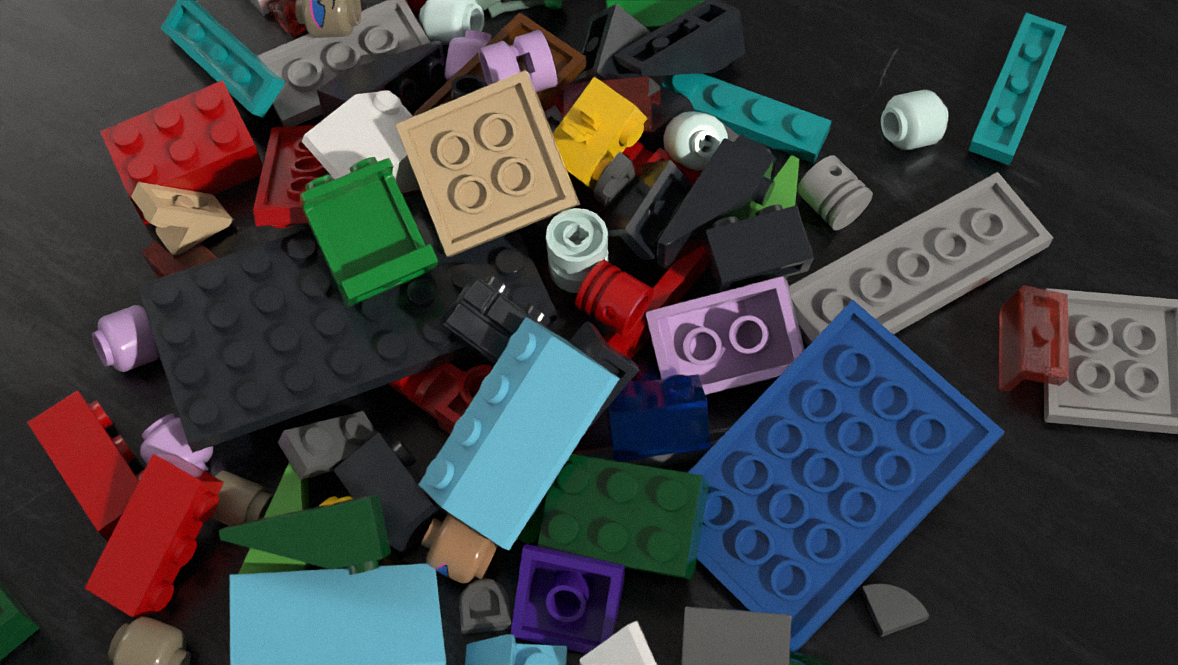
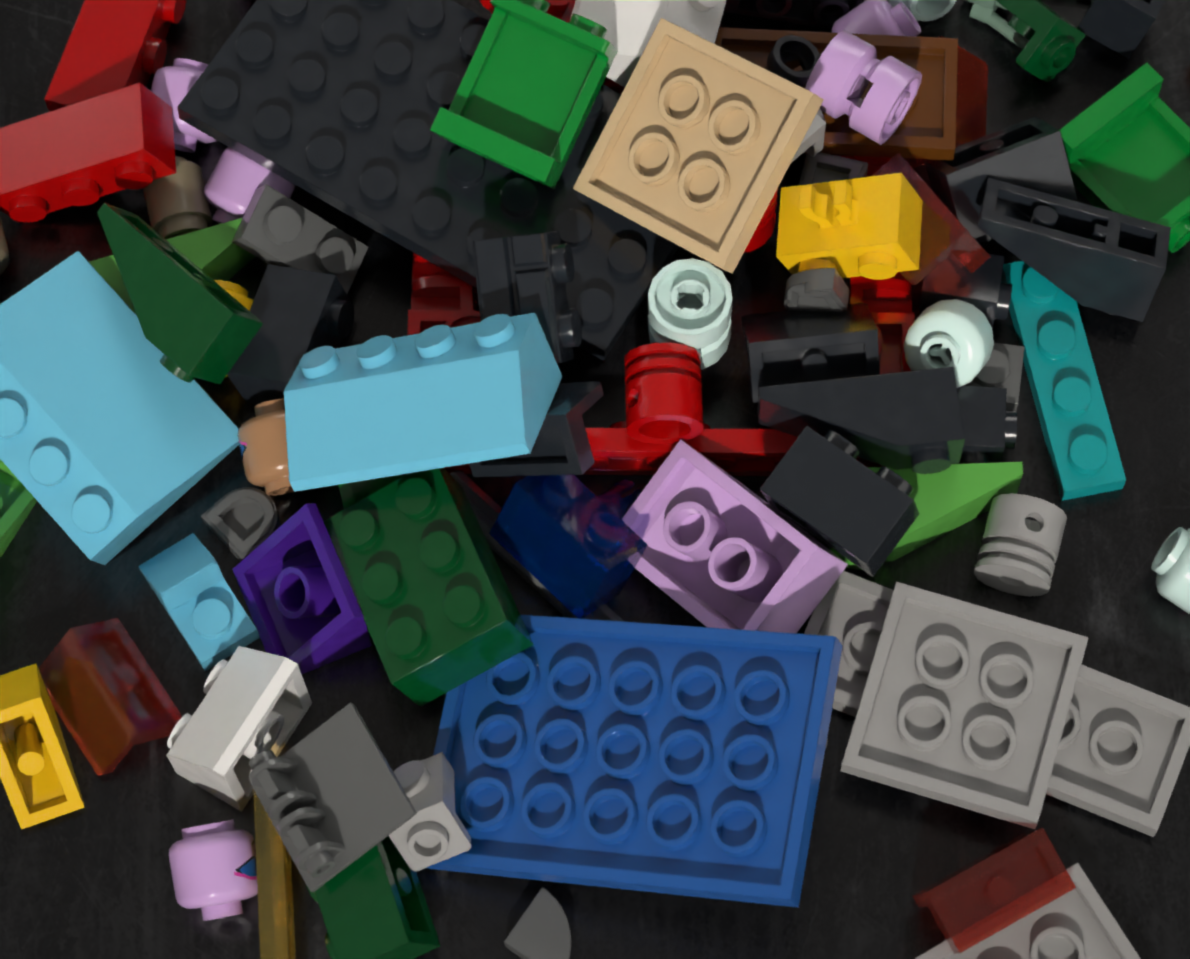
camera: 55 degrees right, 5 degrees up
(261, 456) = (235, 183): none -> lavender head
(802, 618) = (435, 829): none -> light grey bracket
(919, 275) = (965, 705): none -> light grey plate

